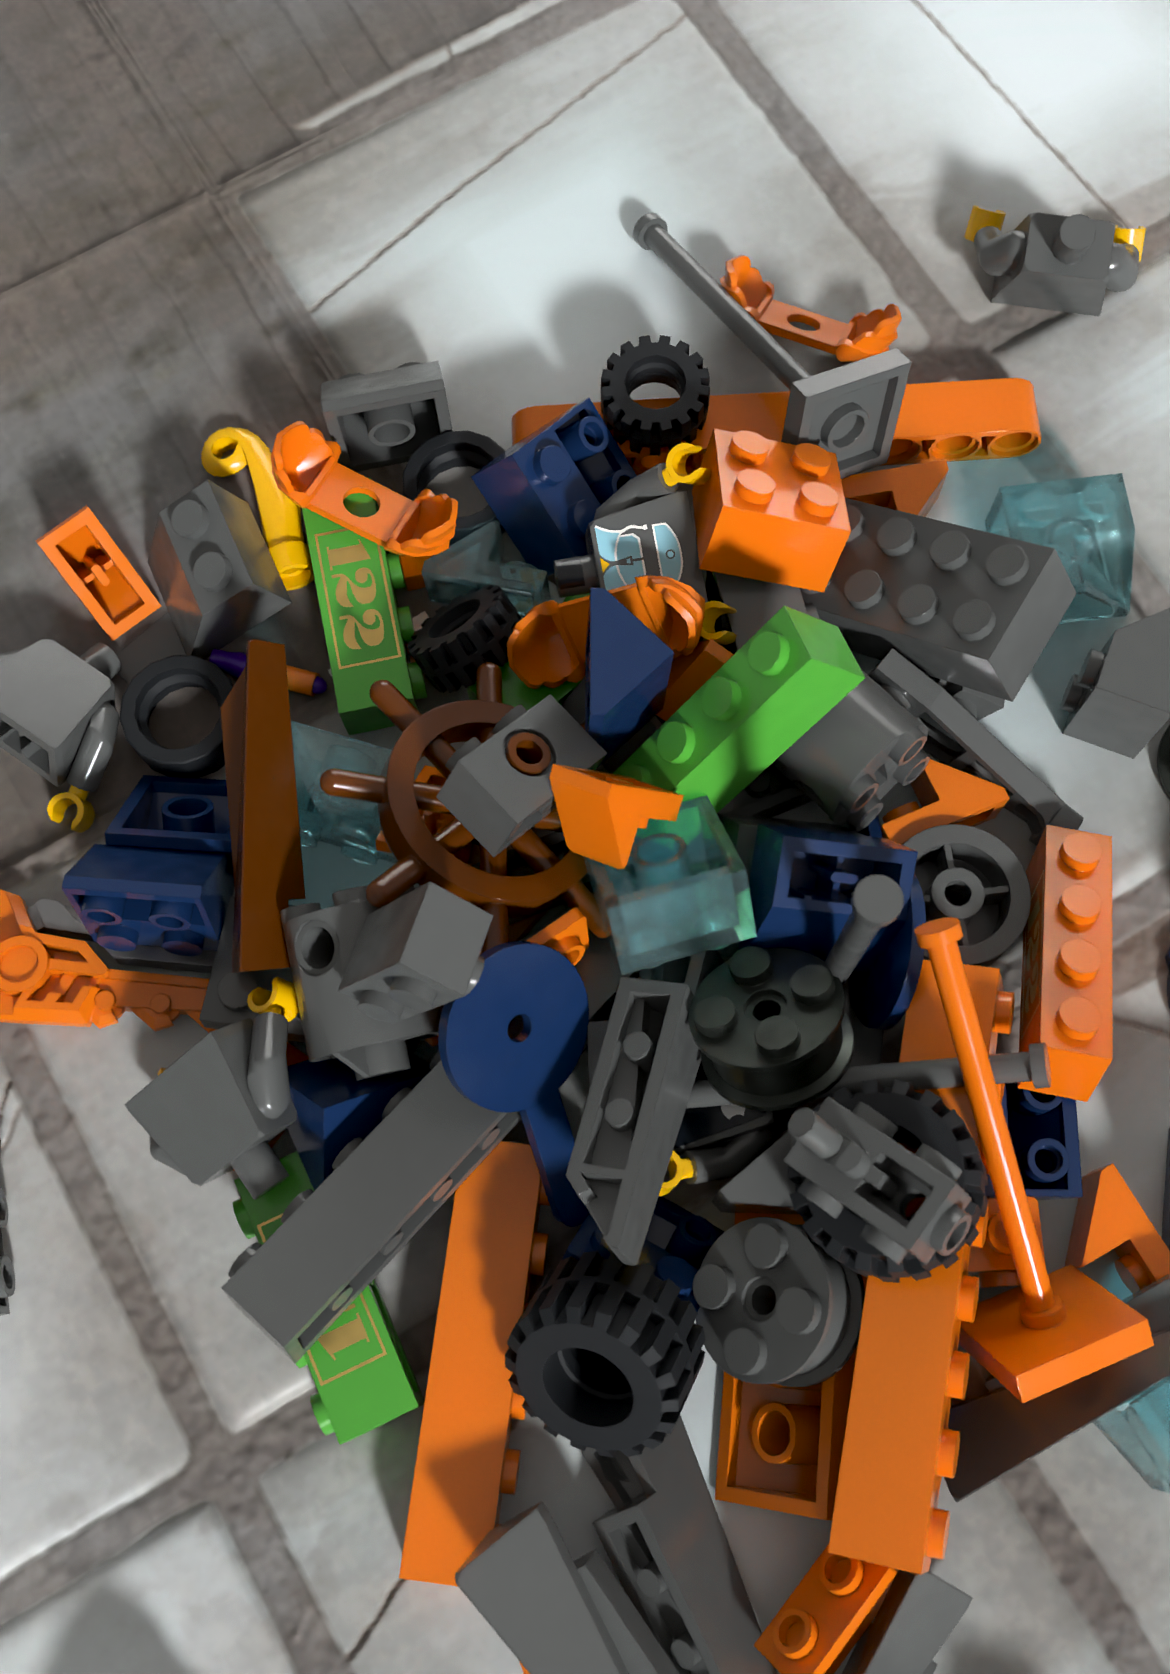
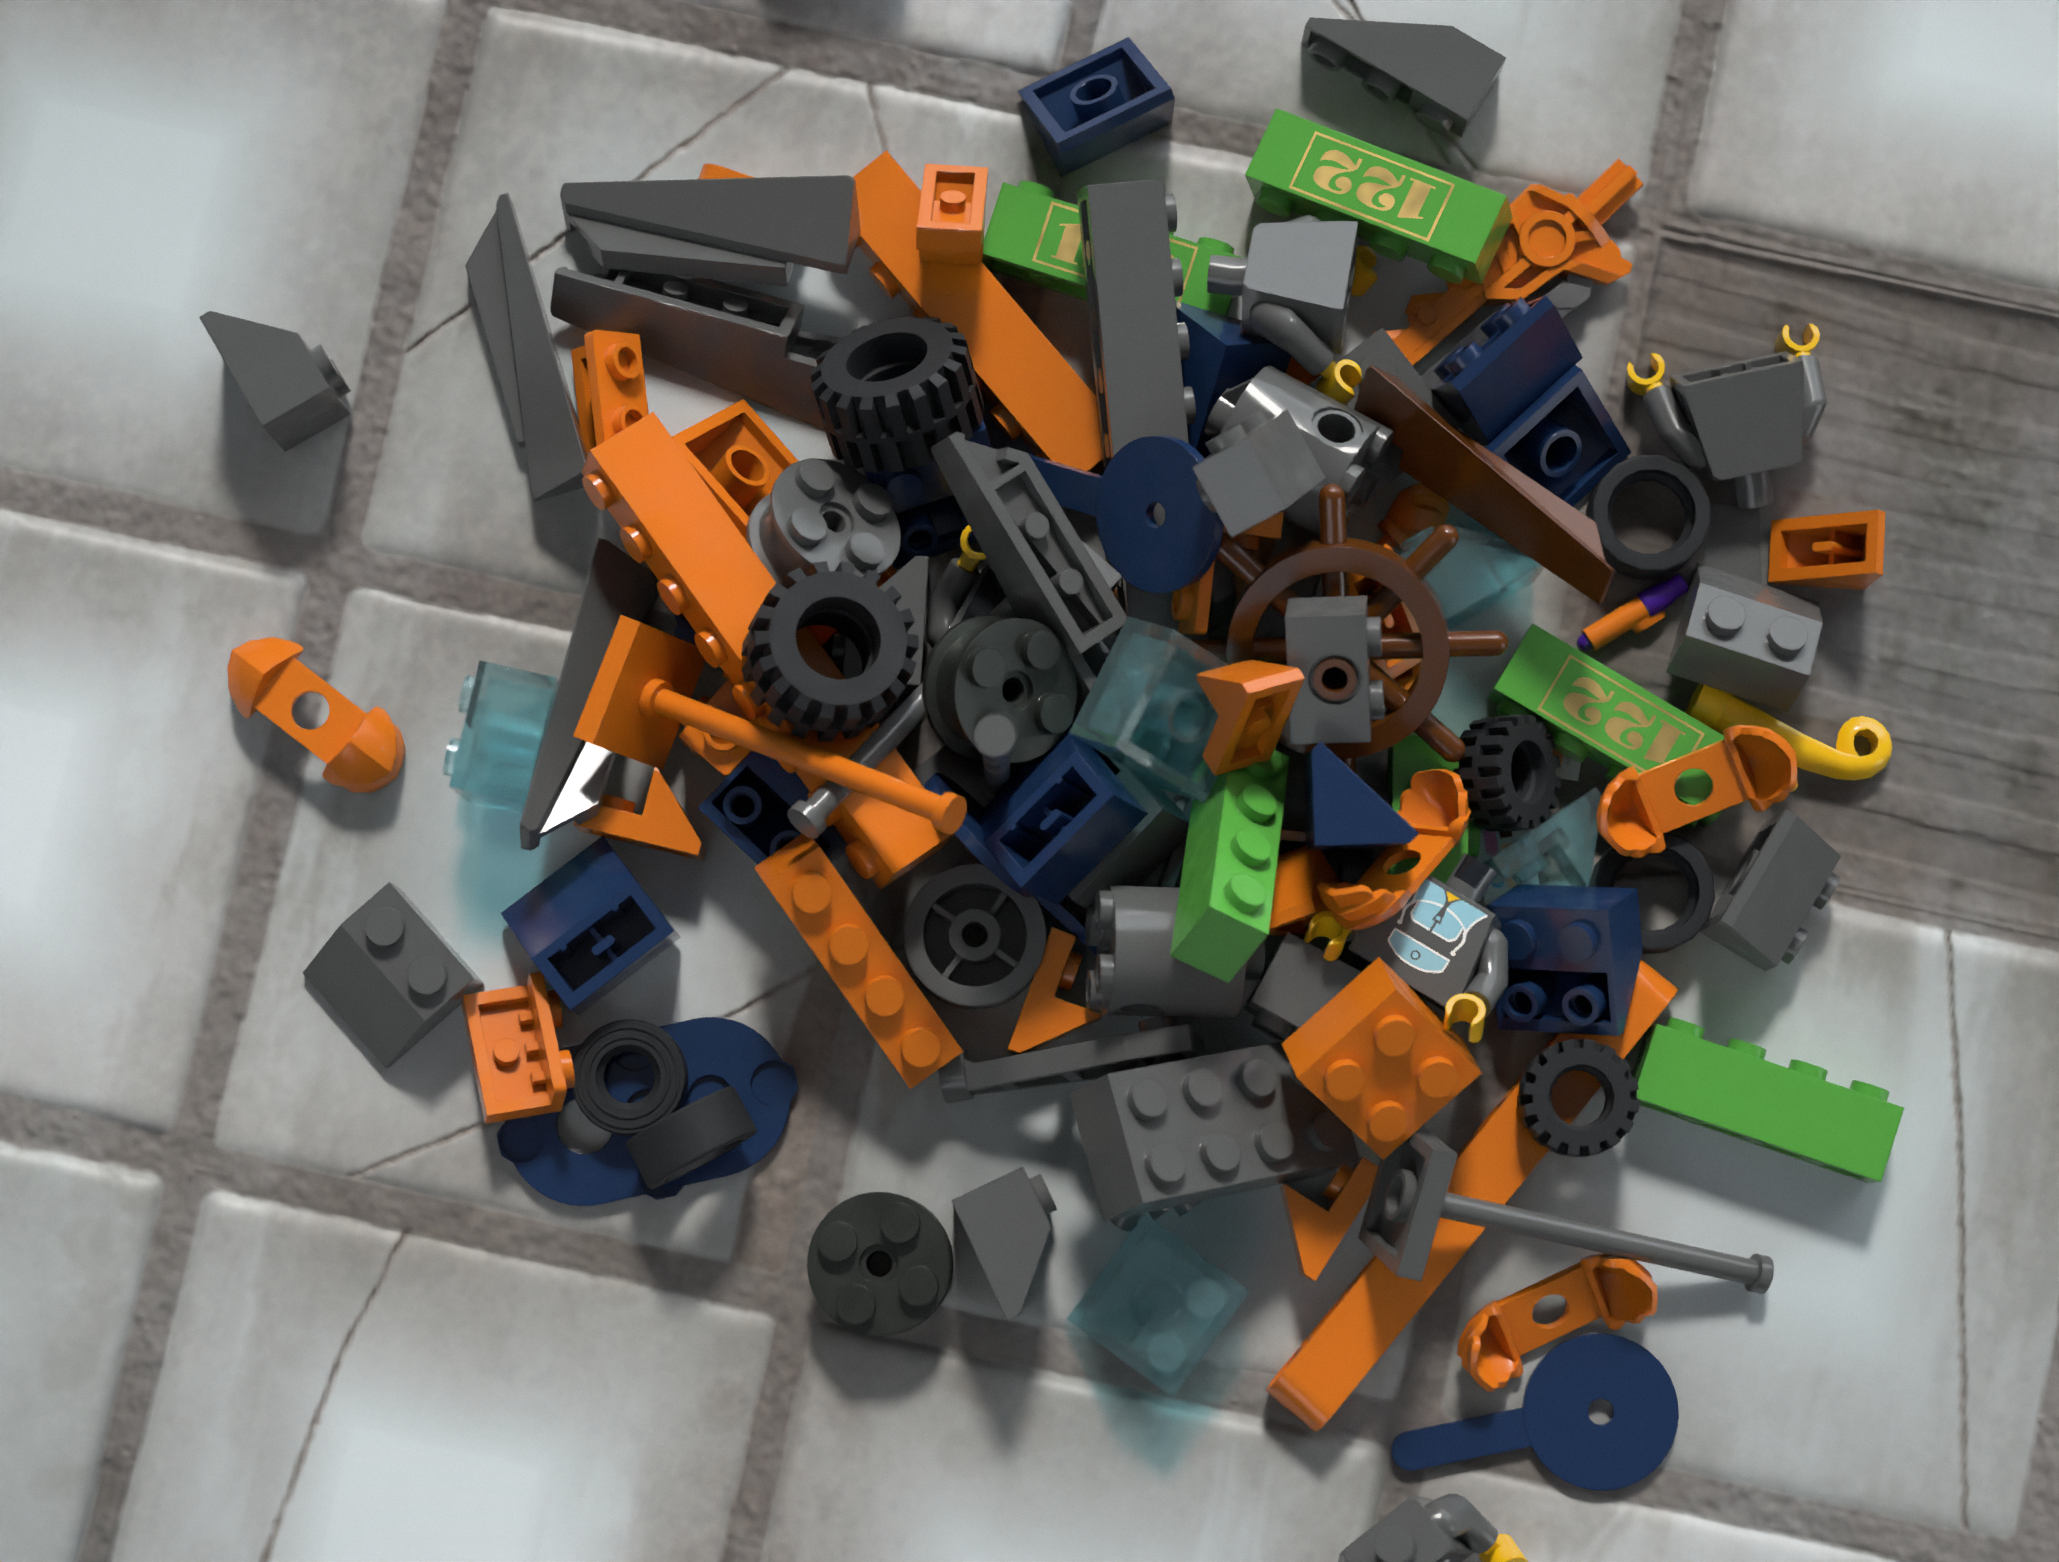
camera: 130 degrees right, 10 degrees up
(88, 1134) = (1395, 200): none -> bright green brick
(200, 1433) = (1098, 105): none -> dark blue slope
(329, 872) = (1410, 513): none -> orange piece
(404, 1459) = (952, 214): none -> orange slope
(532, 301) = (1766, 1103): none -> bright green brick
(859, 1167) = (841, 618): dark grey brick -> none
(863, 272) = (1557, 1418): none -> dark blue piece

